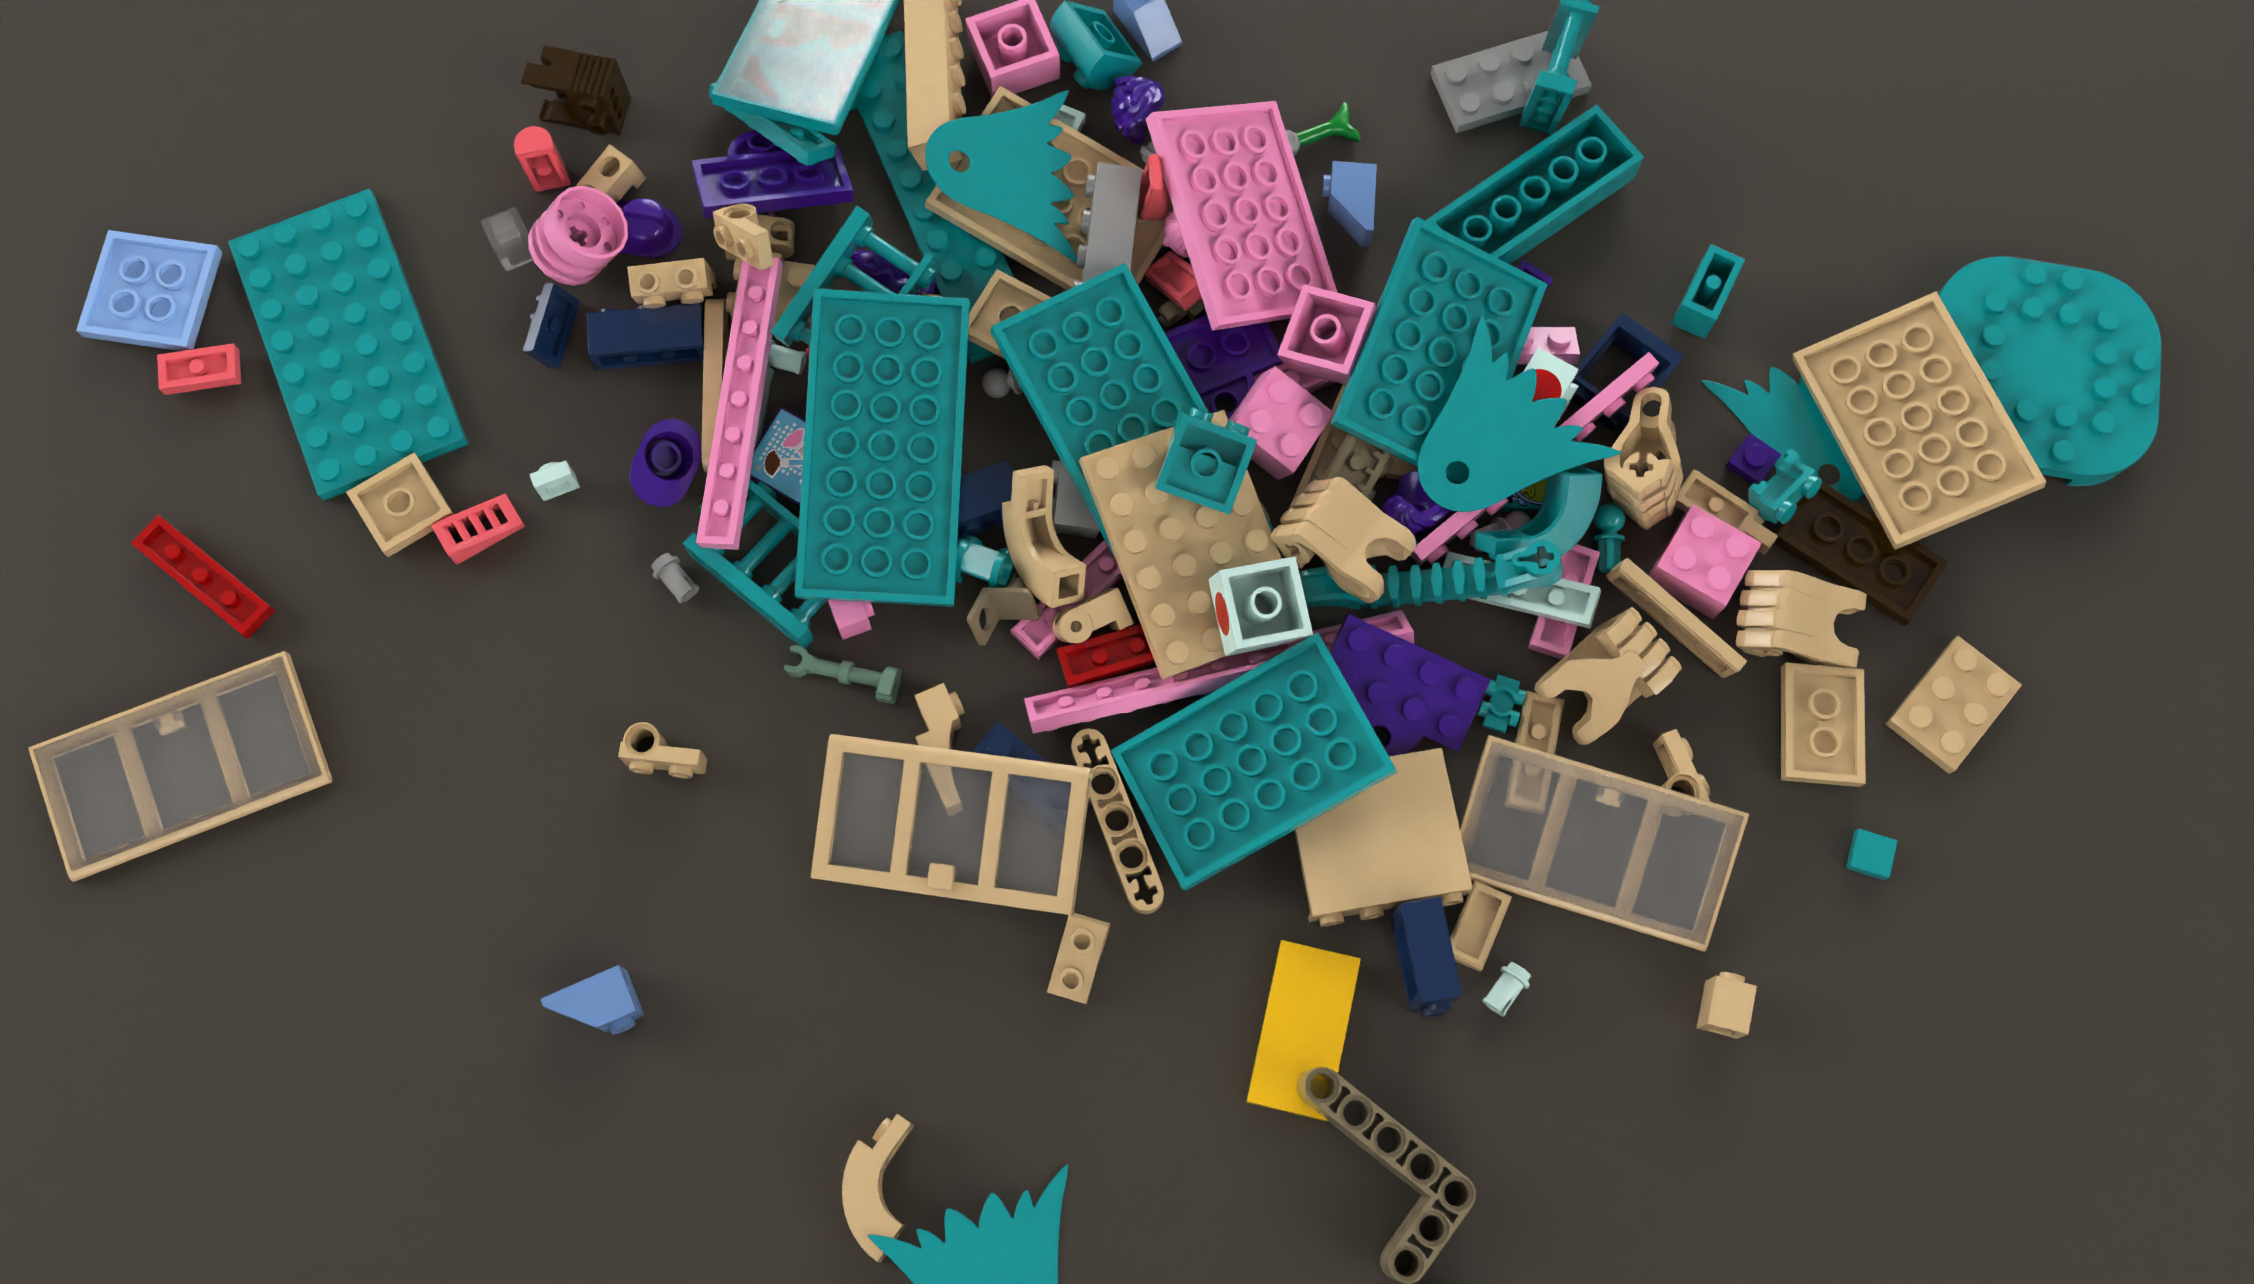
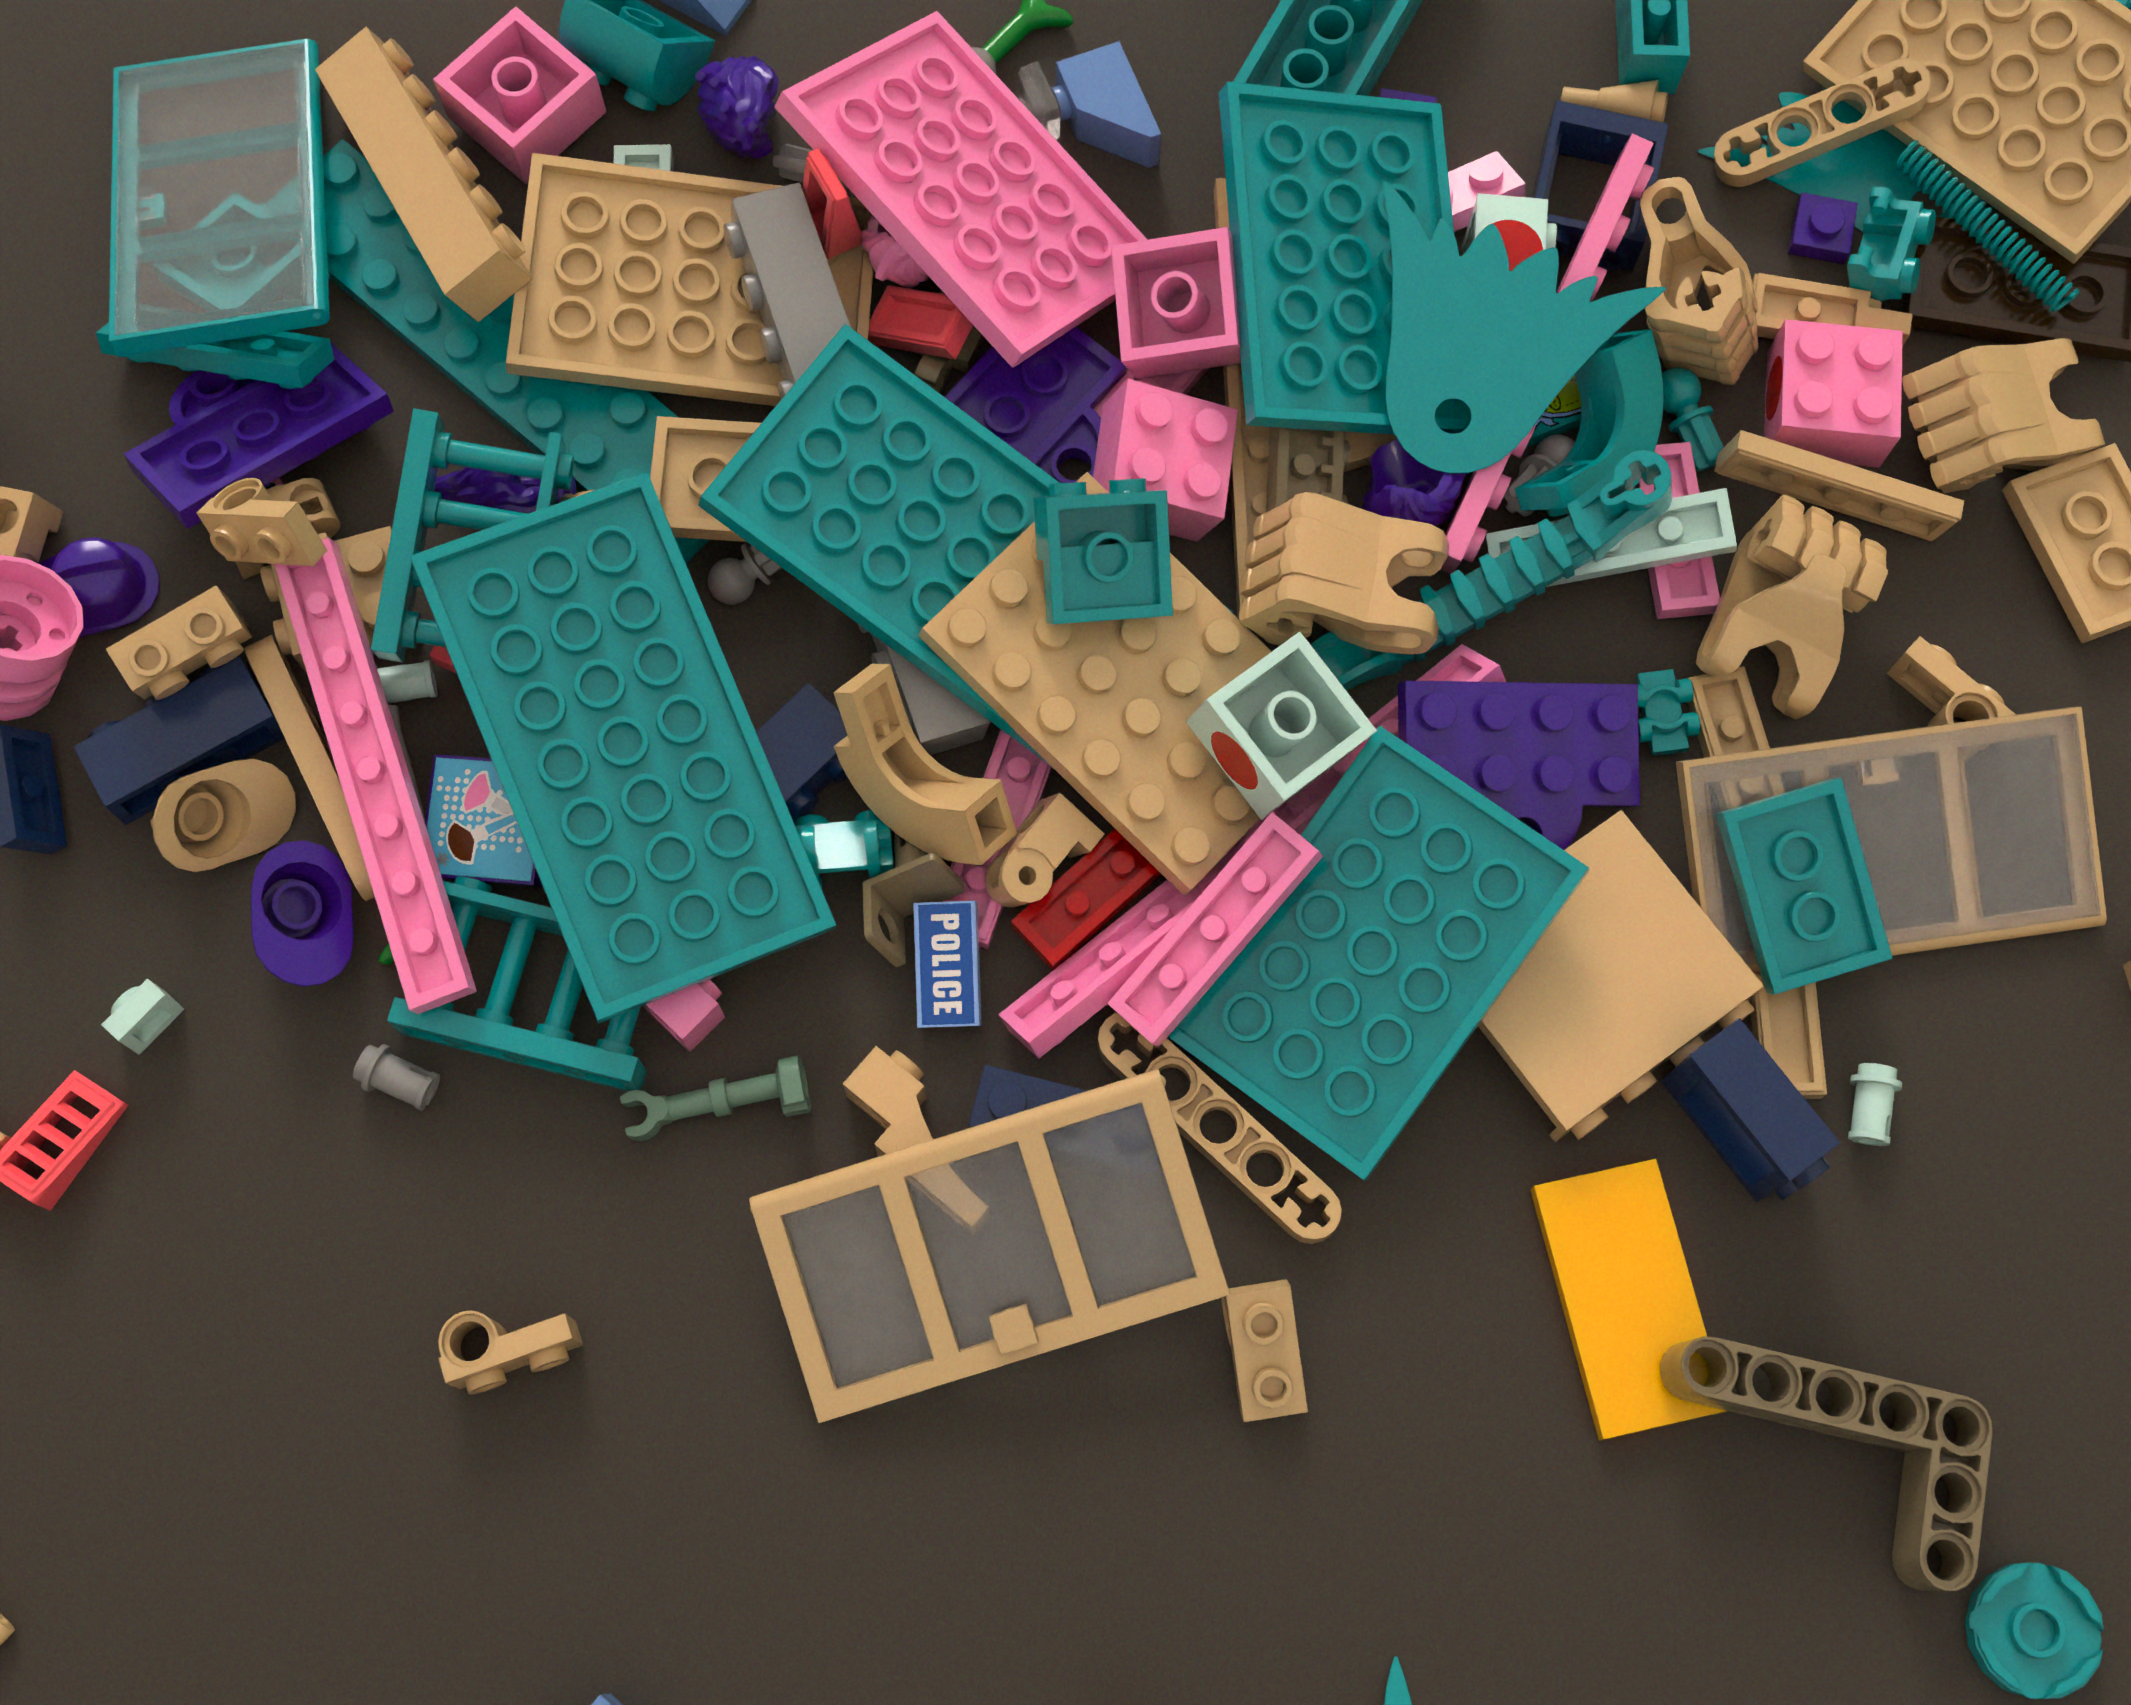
camera: 25 degrees left, 0 degrees up
(650, 388) = (223, 814): none -> tan piece
(1007, 168) = (603, 264): teal piece -> none
(1009, 656) = (947, 964): none -> tile
(1166, 706) = (1215, 929): none -> bright pink plate
(1313, 179) = (1039, 98): none -> clear tile
(1526, 841) = (1804, 886): none -> teal plate
(1674, 333) = (1631, 99): none -> tan cone
(1782, 389) = (1824, 129): none -> tan beam
(1829, 441) = (1985, 240): none -> teal piece

